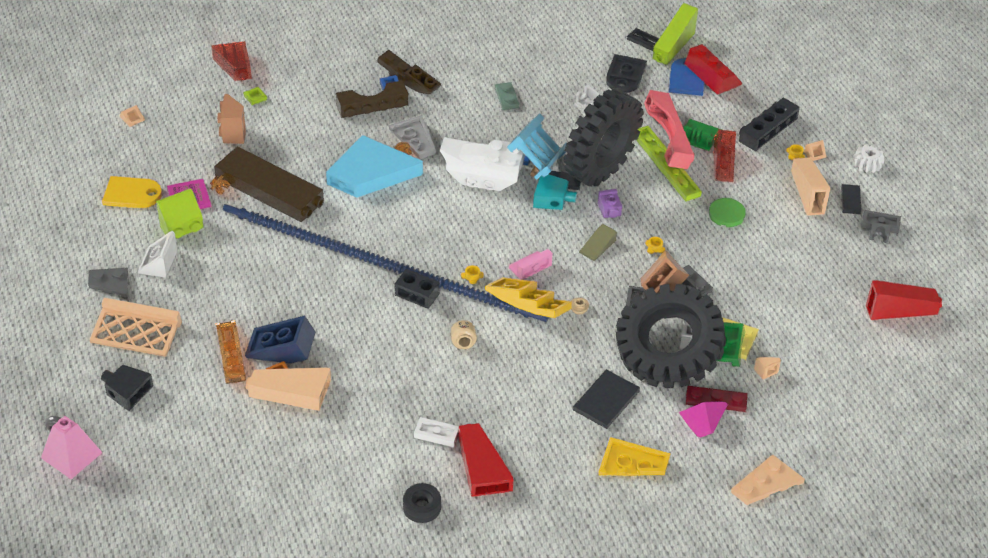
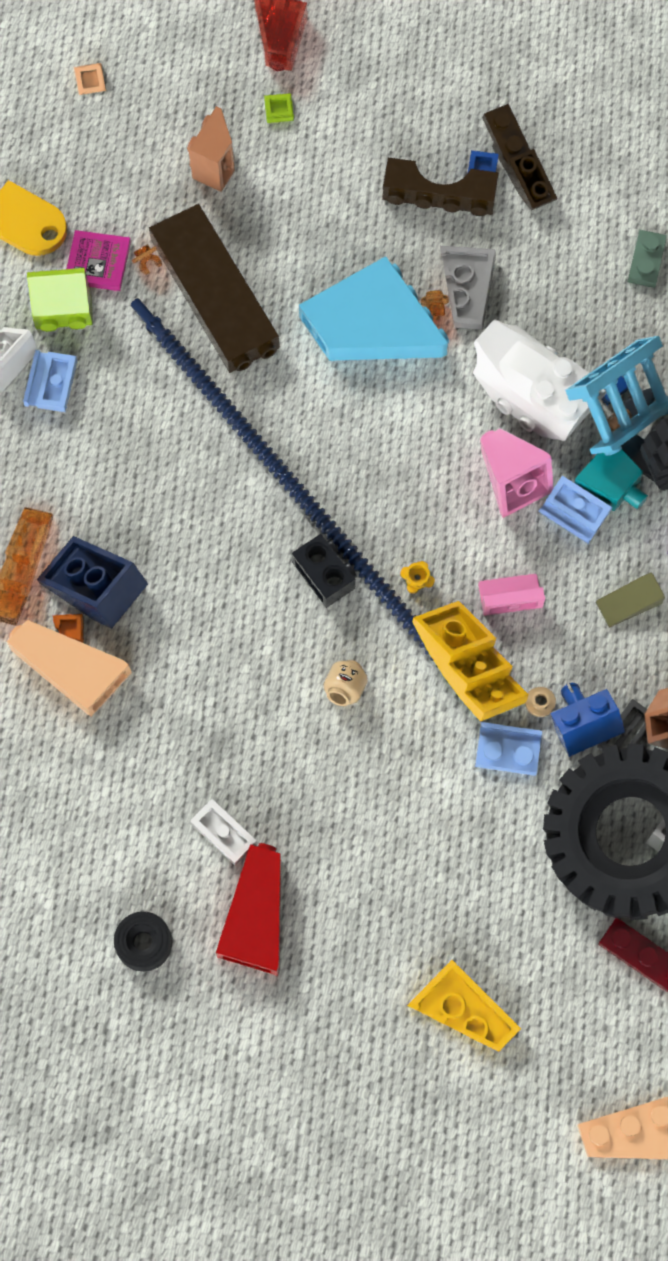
camera: 30 degrees right, 25 degrees up
(195, 259) = (50, 381): none -> light blue plate
(497, 205) = (516, 470): none -> bright pink slope
(541, 213) = (575, 509): none -> light blue plate
(575, 333) = (508, 748): none -> light blue plate
(606, 399) = (489, 883): black tile -> none
(611, 299) = (586, 719): none -> blue brick
(704, 417) = (608, 986): dark pink slope -> none

